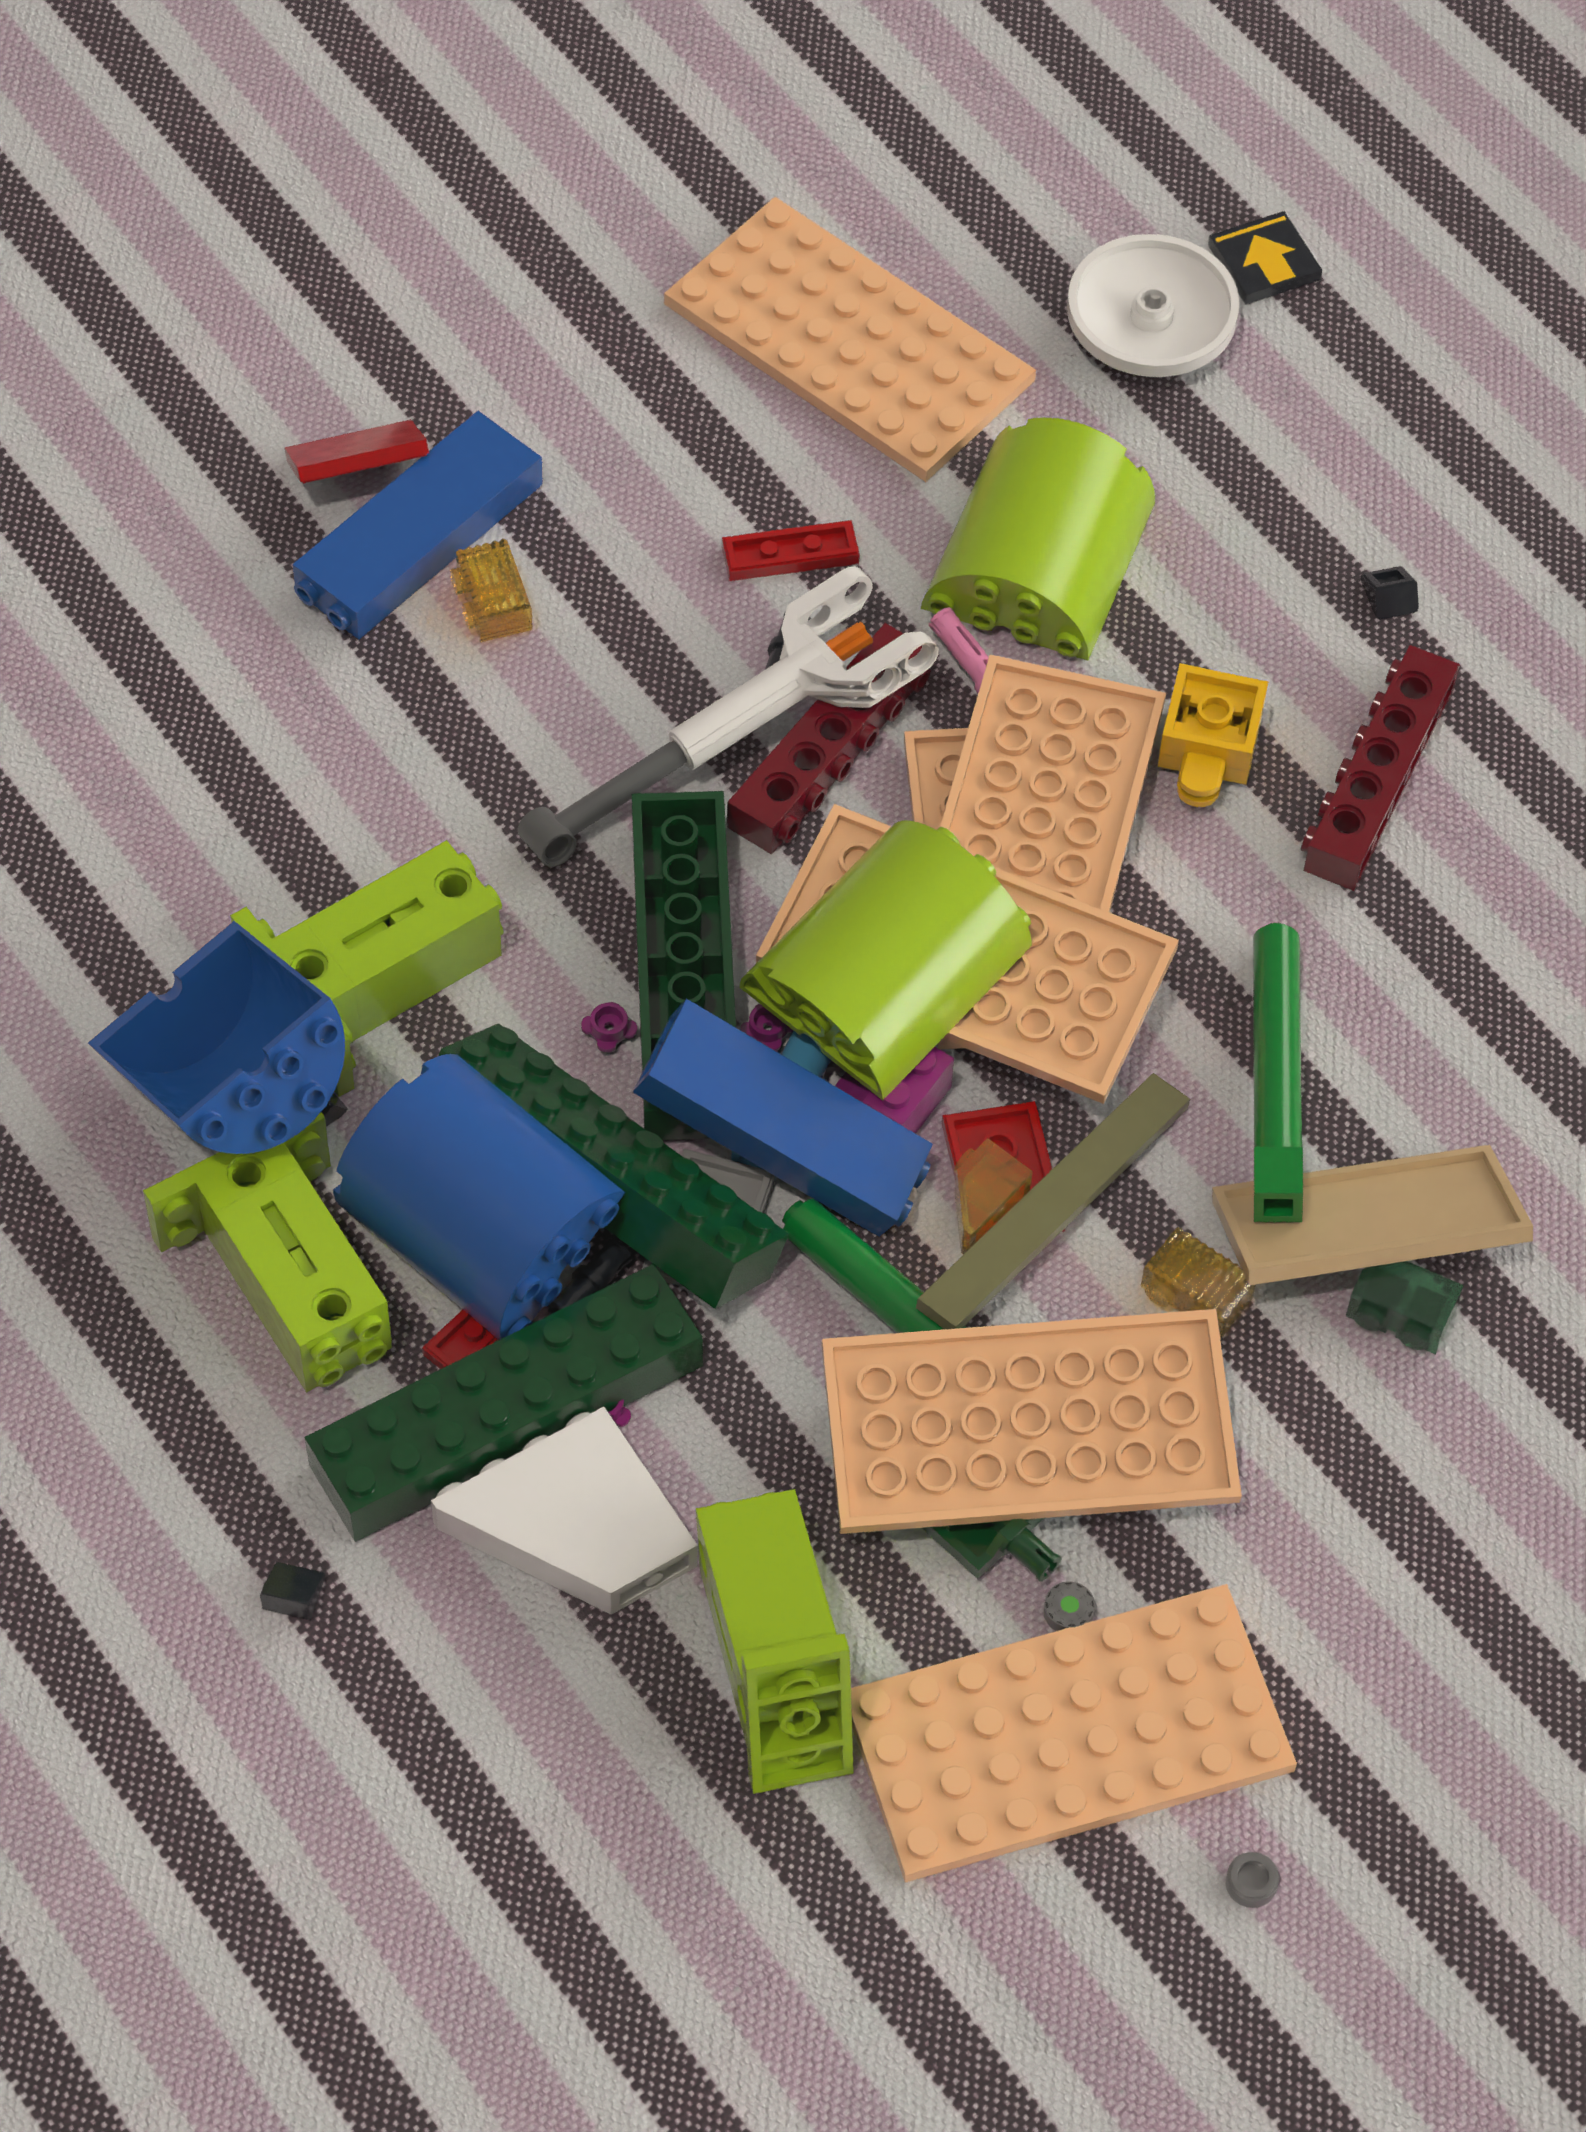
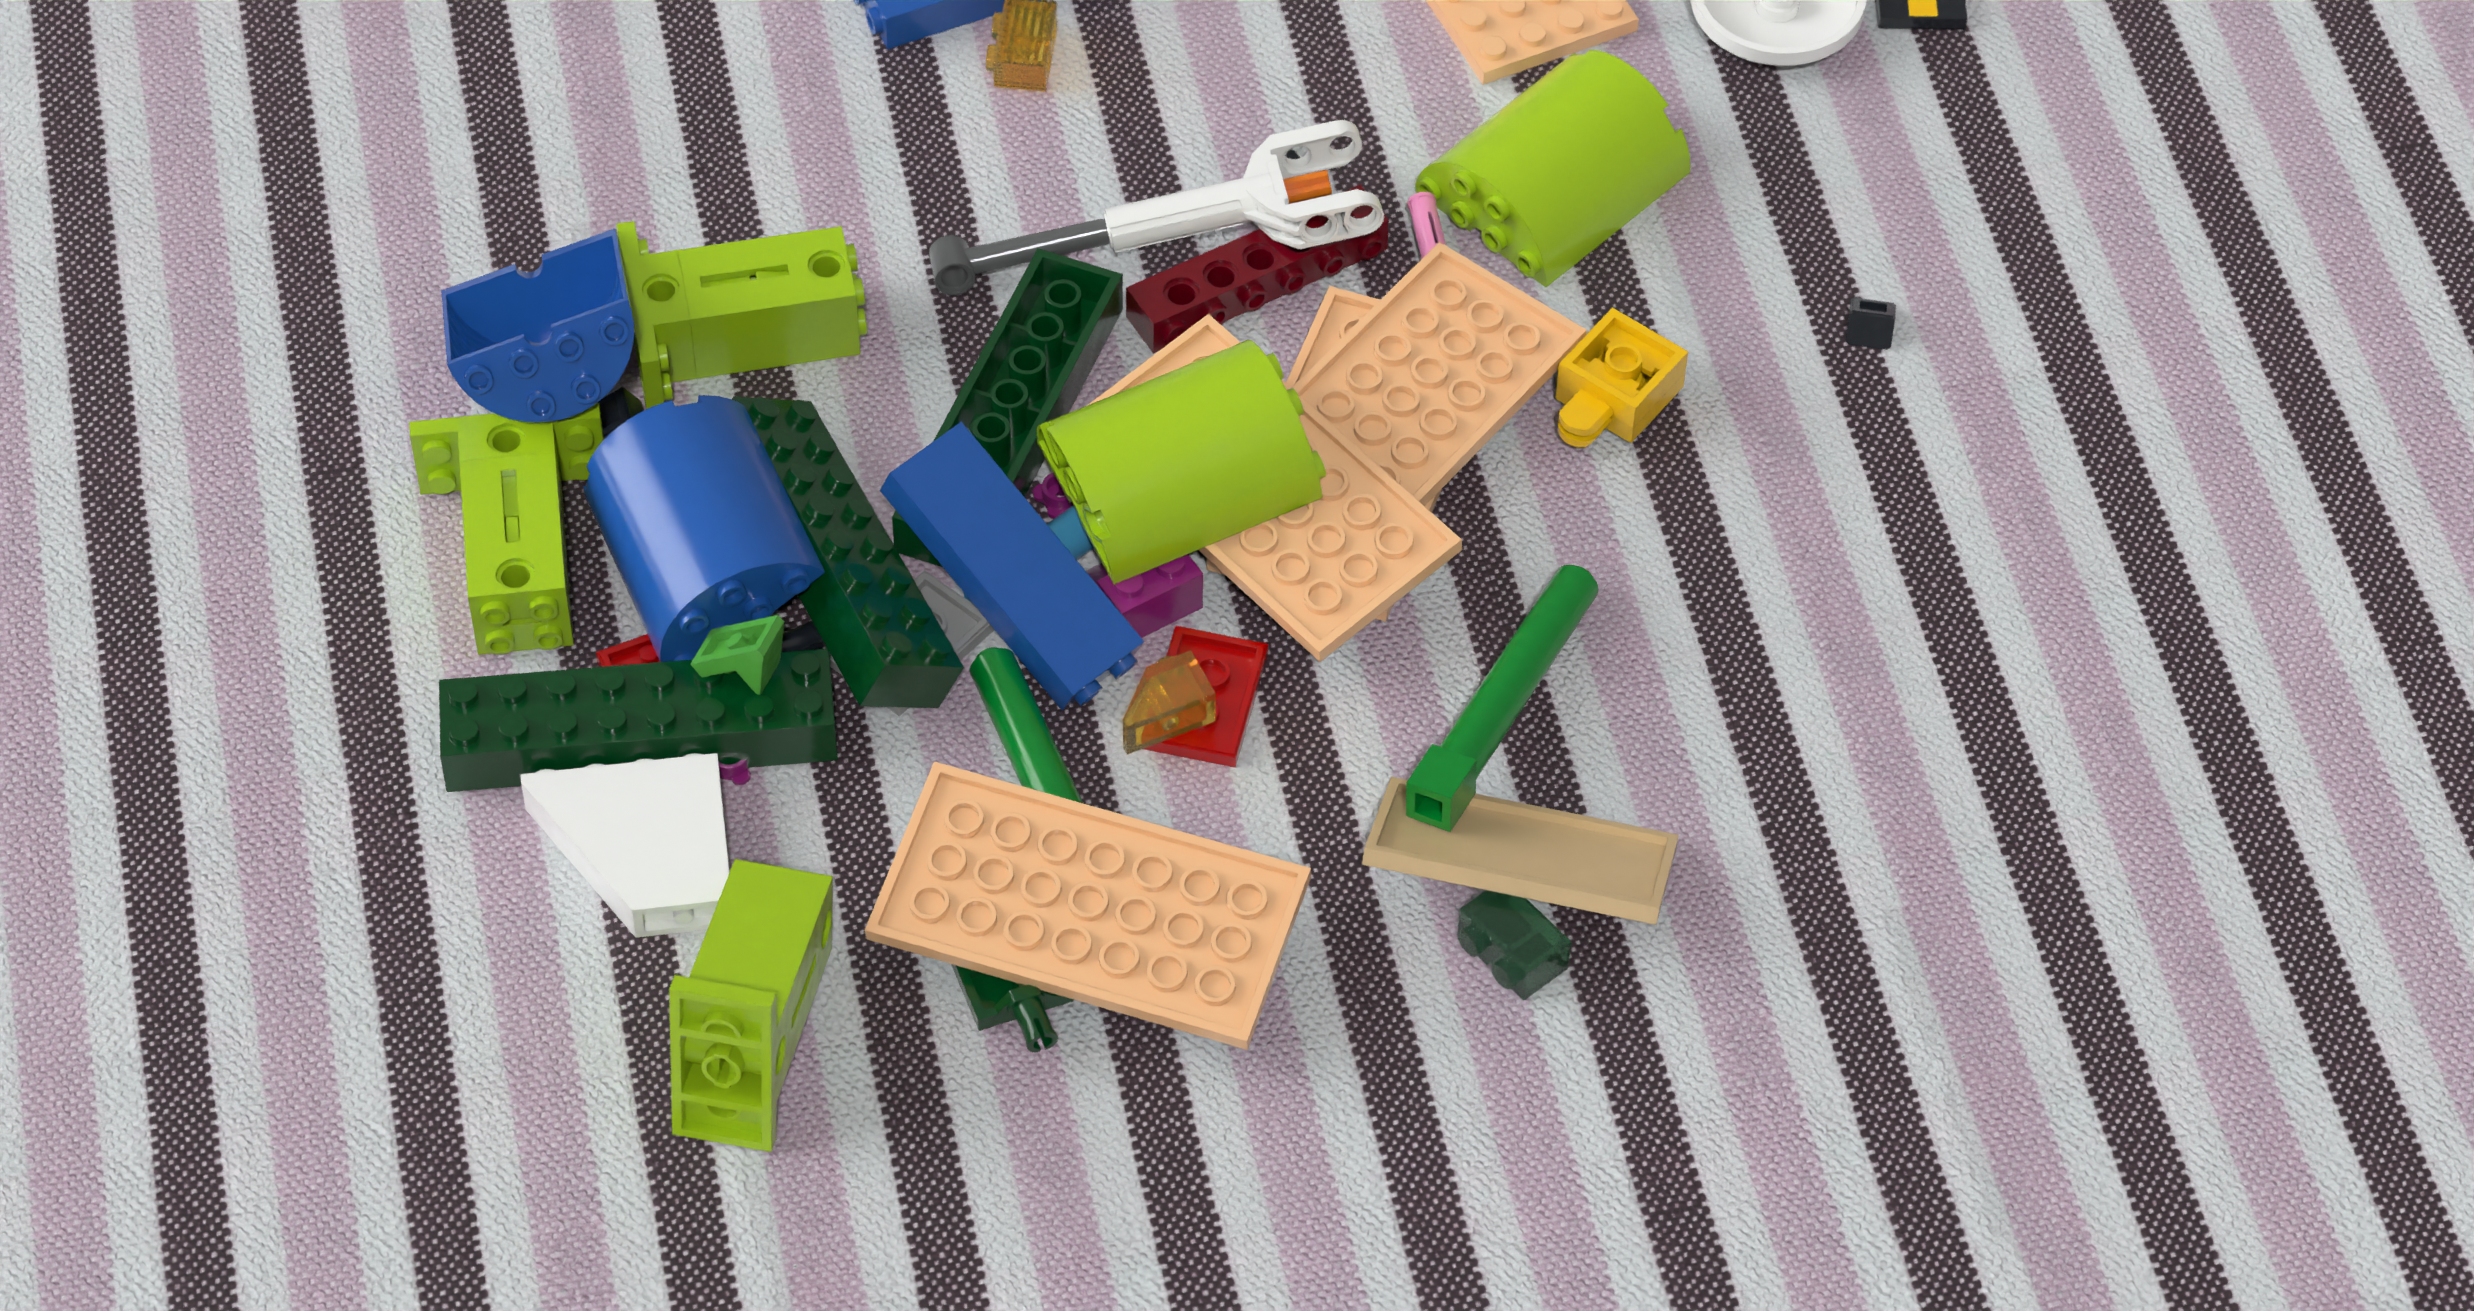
camera: 25 degrees right, 5 degrees down
(292, 1590) = (367, 810): black slope -> none
(588, 1298) = (744, 647): none -> bright green slope
(613, 1015) = (913, 438): magenta plate -> none
(790, 550) = (1319, 100): red tile -> none
(1052, 1204) = (1229, 733): olive tile -> none
(1068, 1605) = (1047, 1087): flat silver tile -> none
(1068, 1732) = (985, 1192): light nougat plate -> none
(1196, 1278) = (1329, 845): clear yellow brick -> none
(1344, 856) = (1765, 469): dark red brick -> none

